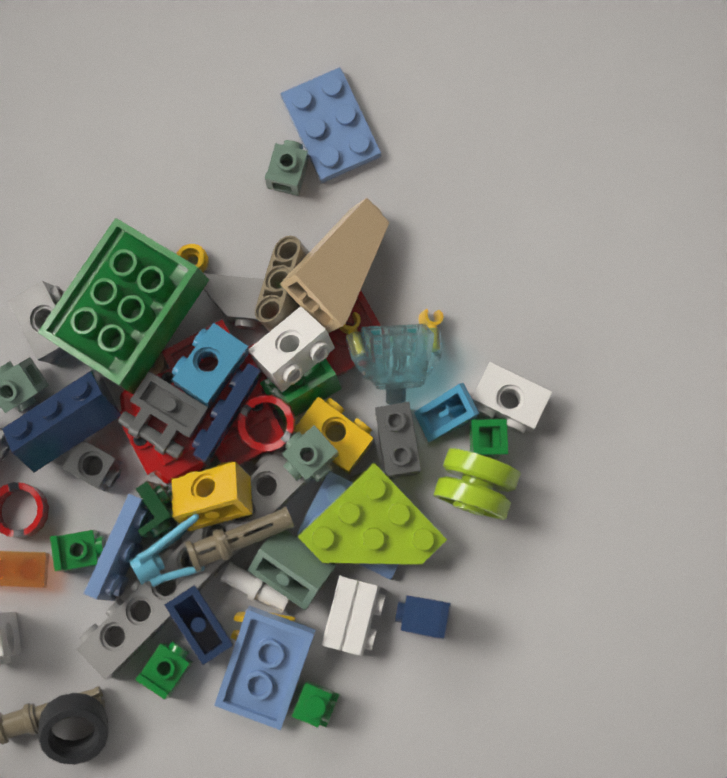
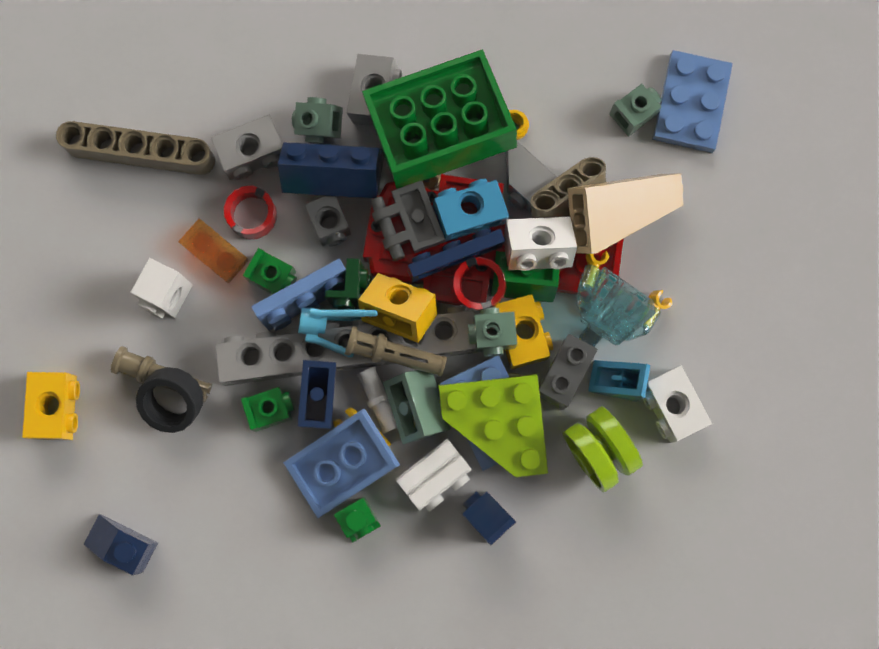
camera: 30 degrees right, 0 degrees up
(489, 437) = (638, 421): green brick -> none

